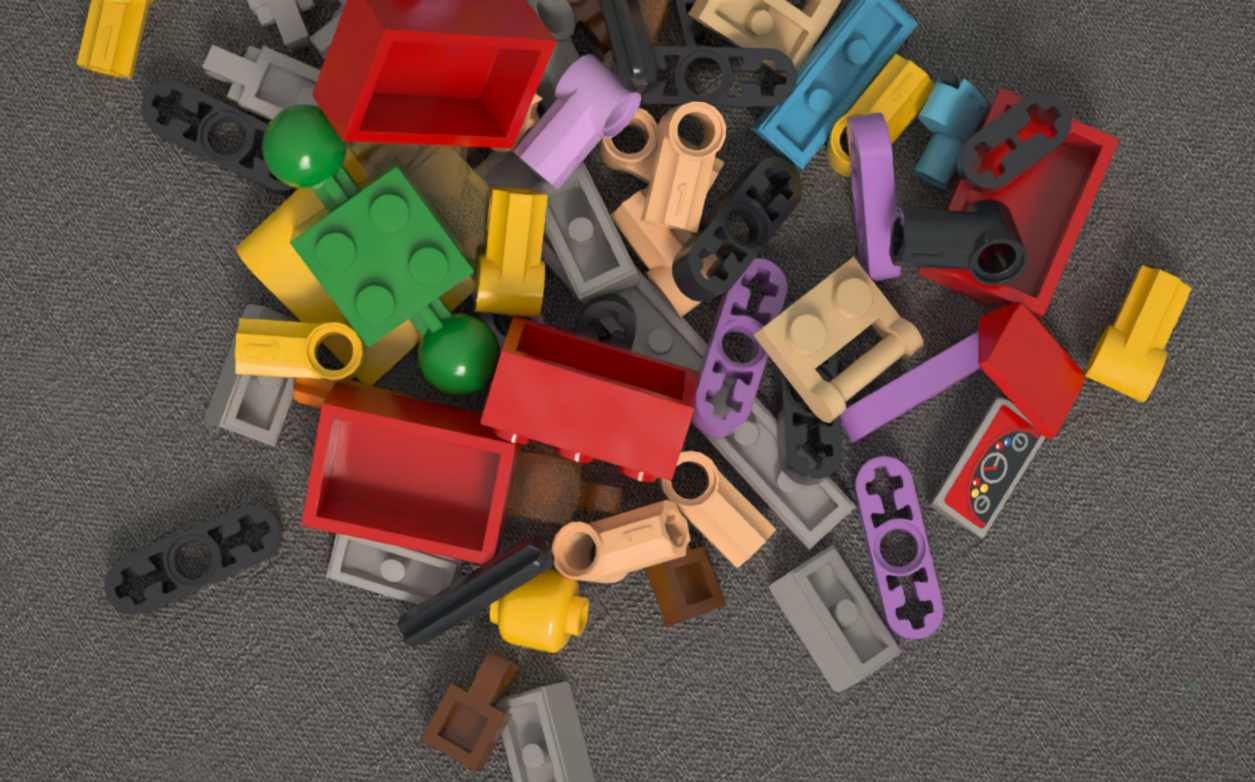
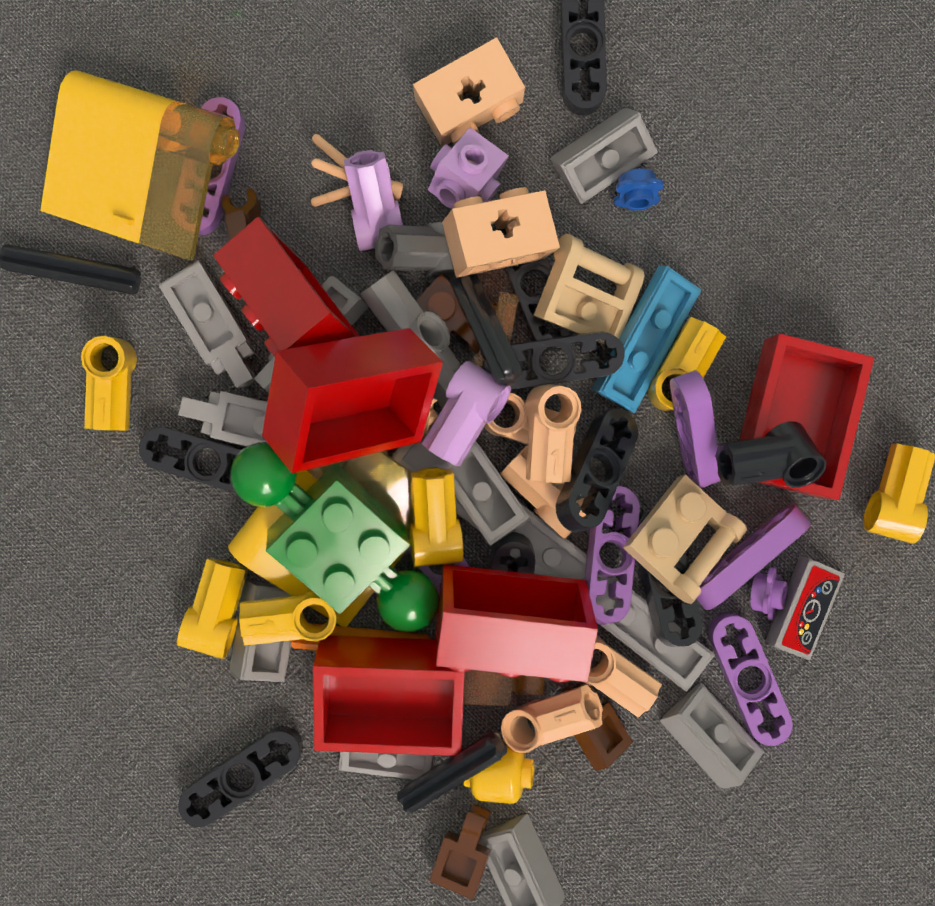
camera: 10 degrees left, 5 degrees up
(193, 345) = (210, 621): none -> yellow piece
(940, 435) = (768, 593): none -> medium lavender plate
(952, 116) = (739, 360): medium azure piece -> none
(1005, 130) = (807, 383): black beam -> none
(1029, 366) = (829, 536): red slope -> none

